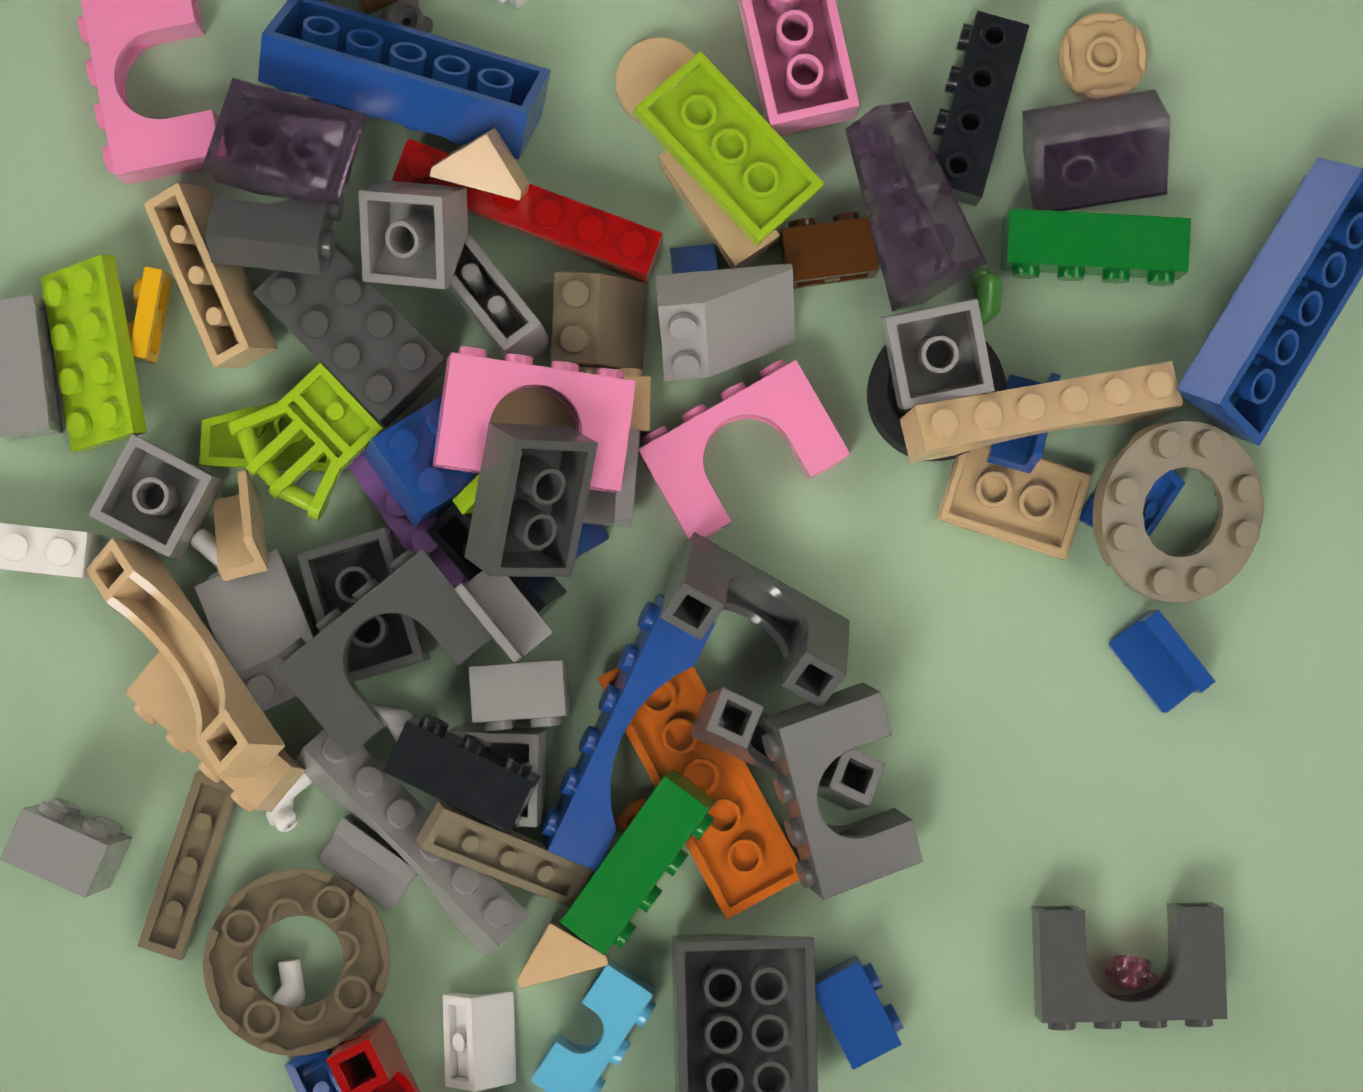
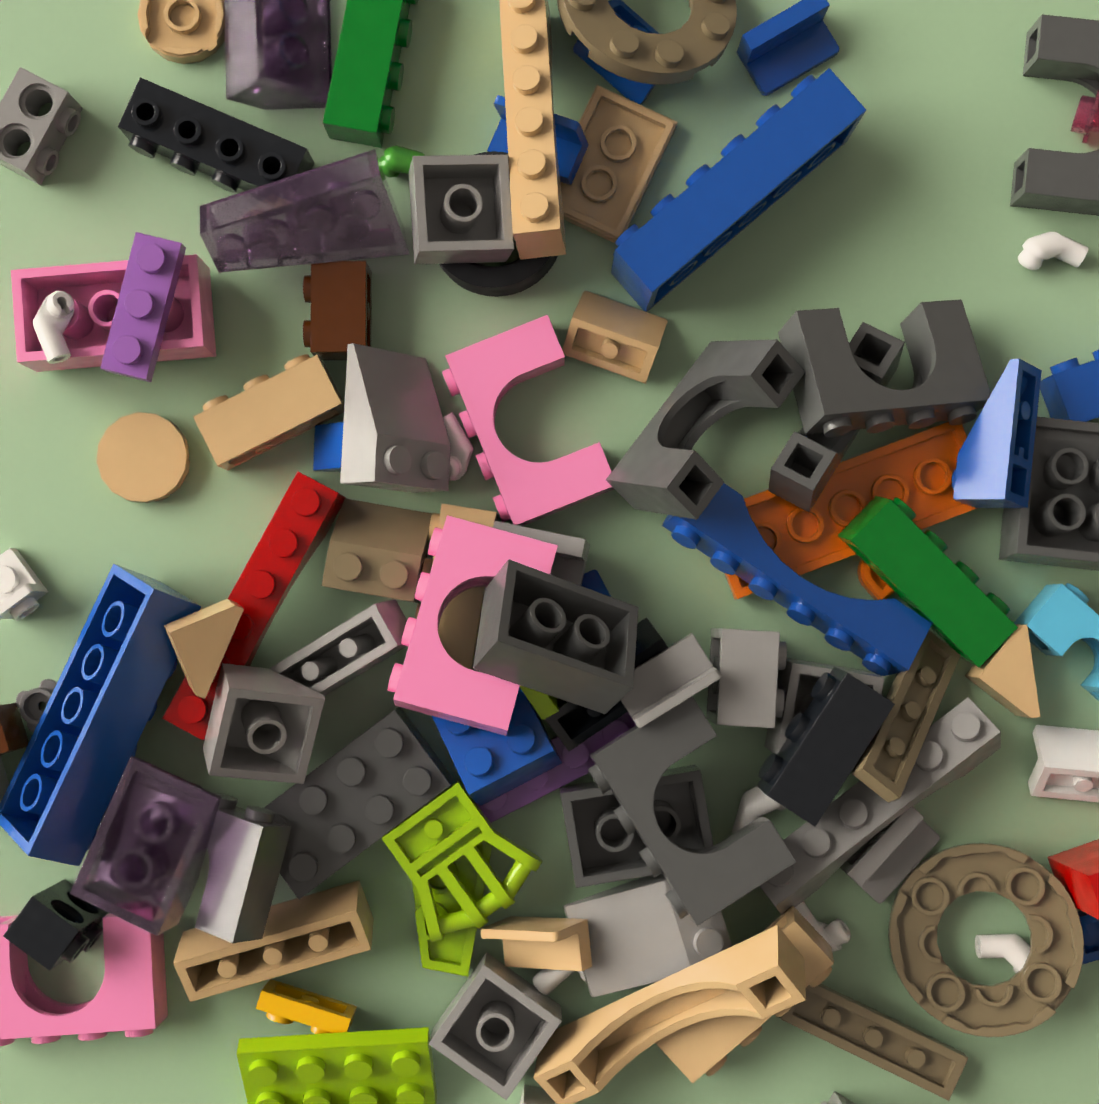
camera: 85 degrees left, 0 degrees up
(199, 68) = (56, 926): none -> black brick
(711, 387) = (460, 449): none -> white arm
(728, 148) = (220, 392): lime plate -> none
(778, 913) = (999, 450): none -> slope
(799, 62) = (143, 307): none -> medium lavender plate
(842, 524) = (614, 336): none -> tan panel
(993, 948) = (1049, 246): none -> white arm
(1000, 623) = (736, 189): none -> blue brick

